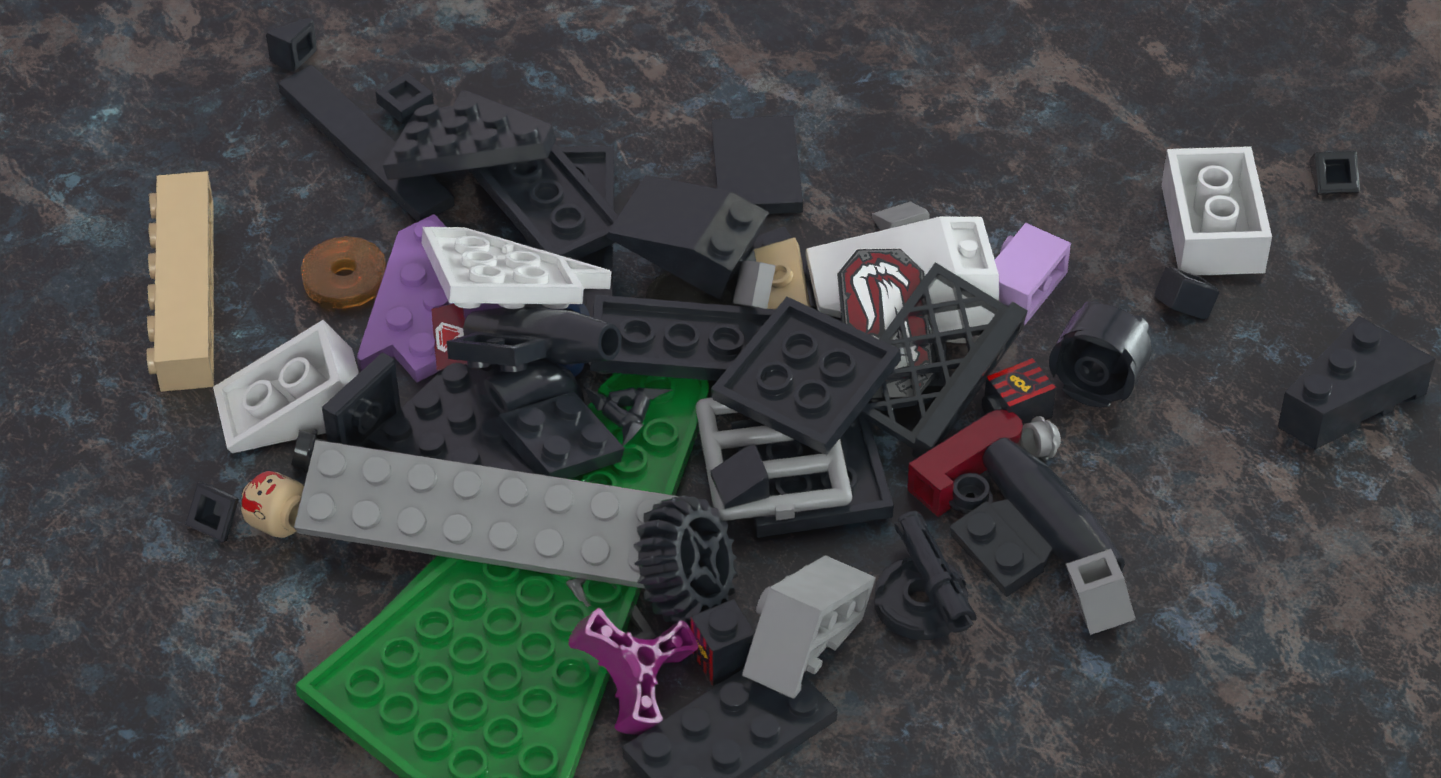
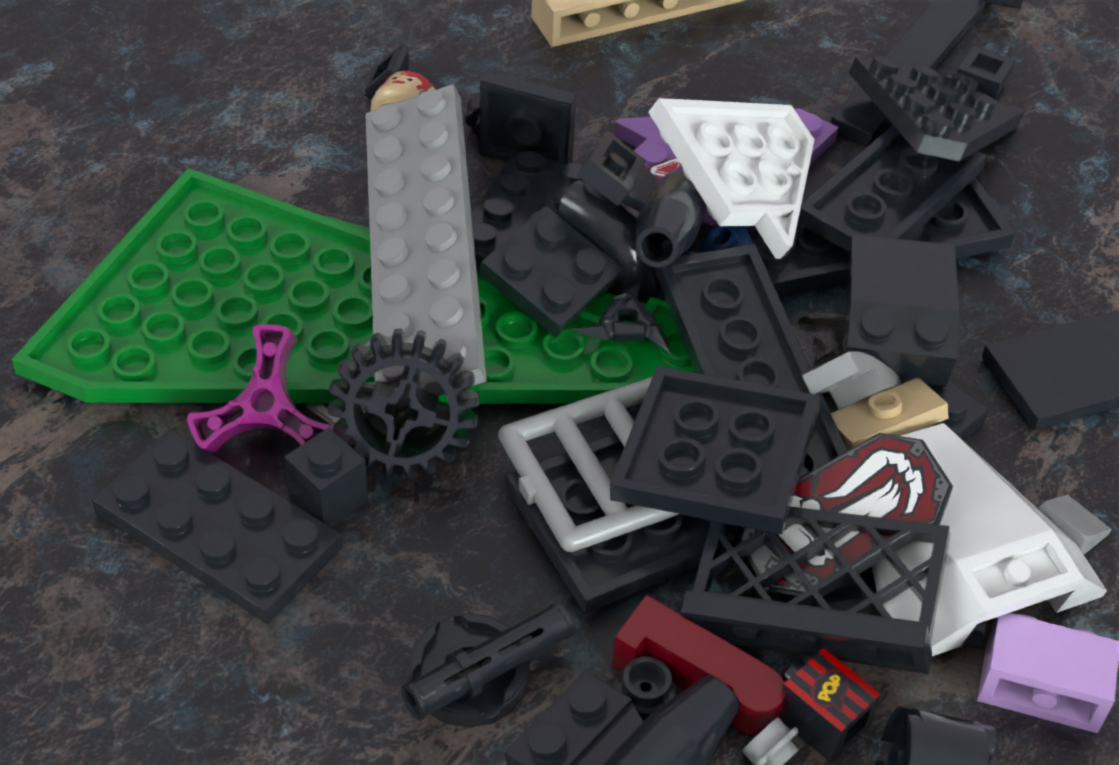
camera: 70 degrees right, 0 degrees up
(284, 390) = (587, 74): white slope -> none
(343, 254) = (715, 74): clear orange tile -> none
(741, 478) = (544, 430): black slope -> none
(803, 618) = (368, 535): light grey wedge -> none

